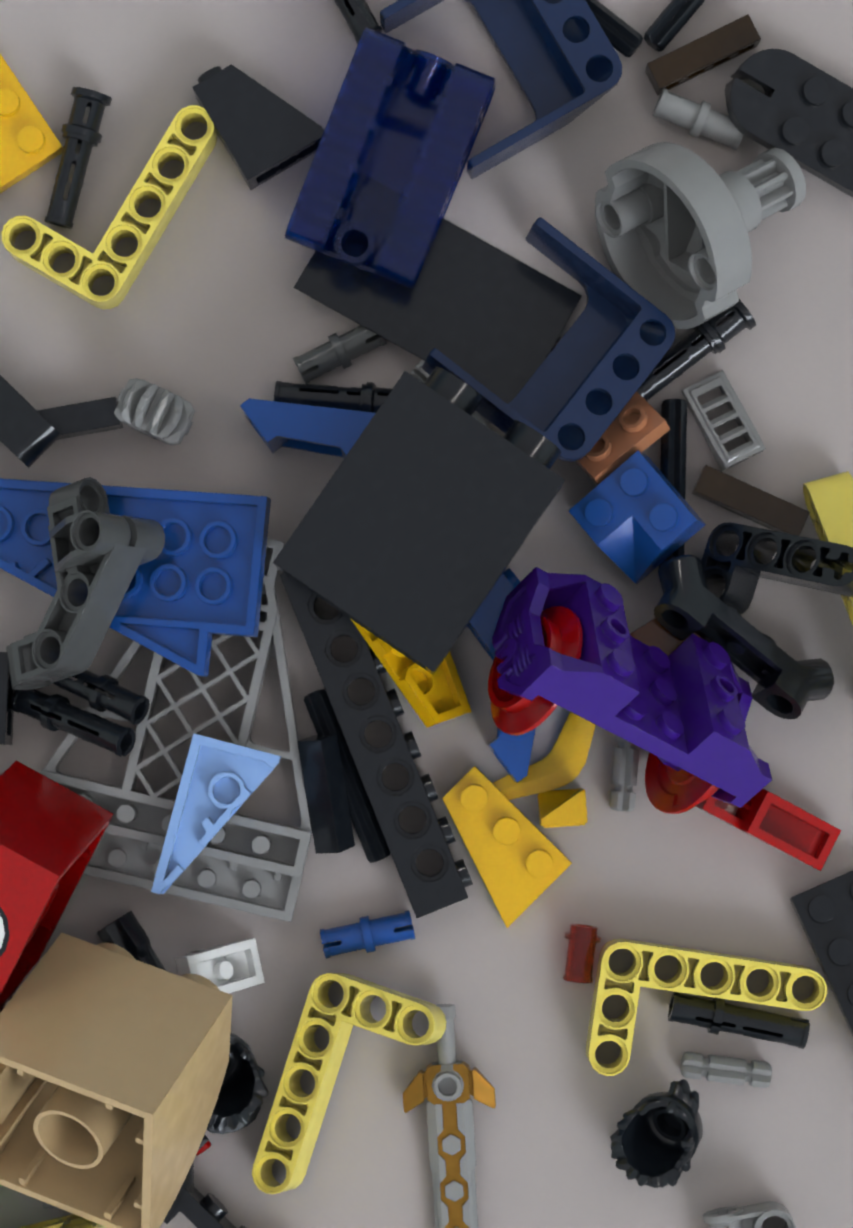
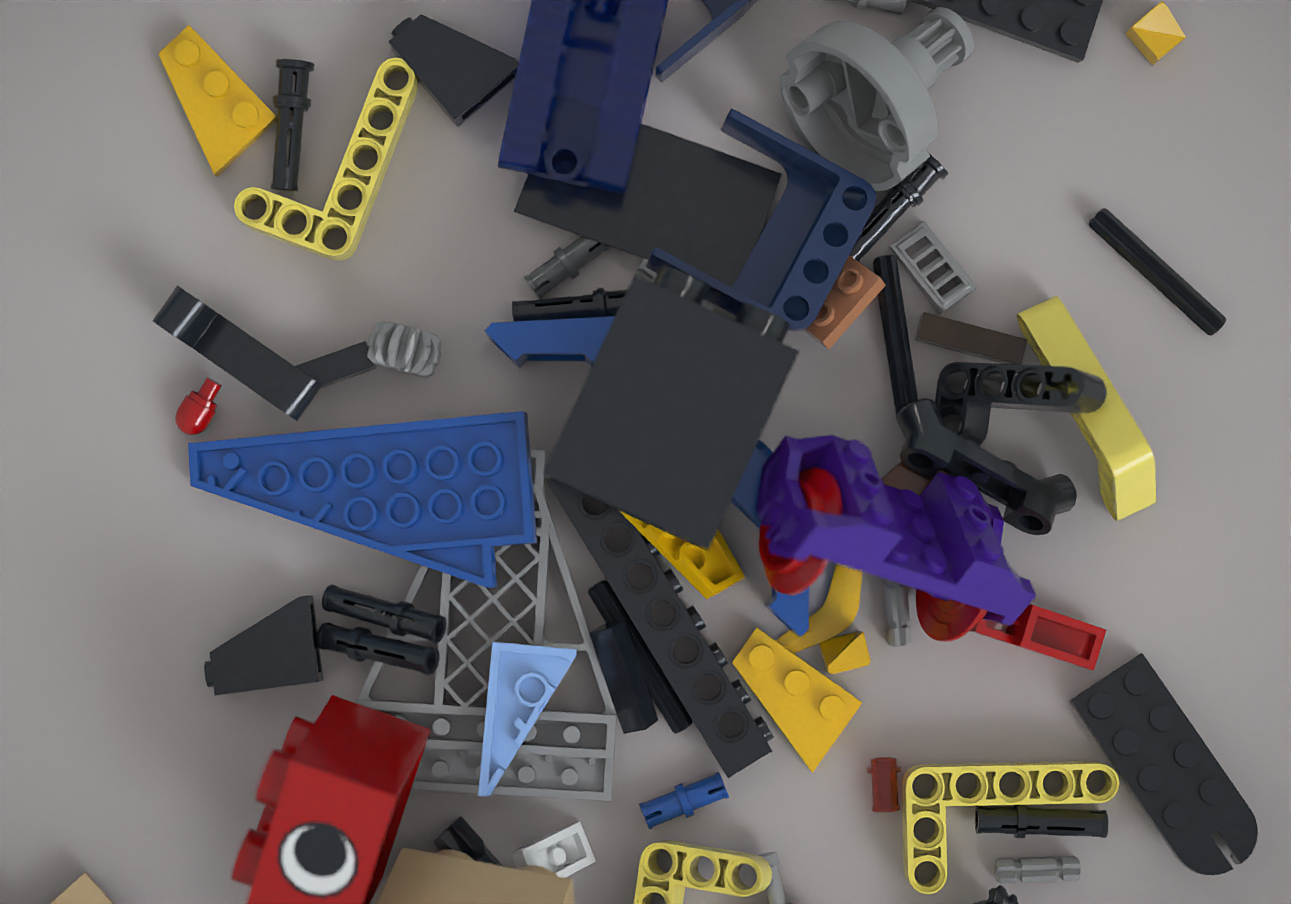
camera: 10 degrees left, 0 degrees up
(93, 568) = (375, 505): dark grey connector -> none
(637, 517) = (868, 371): blue slope -> none

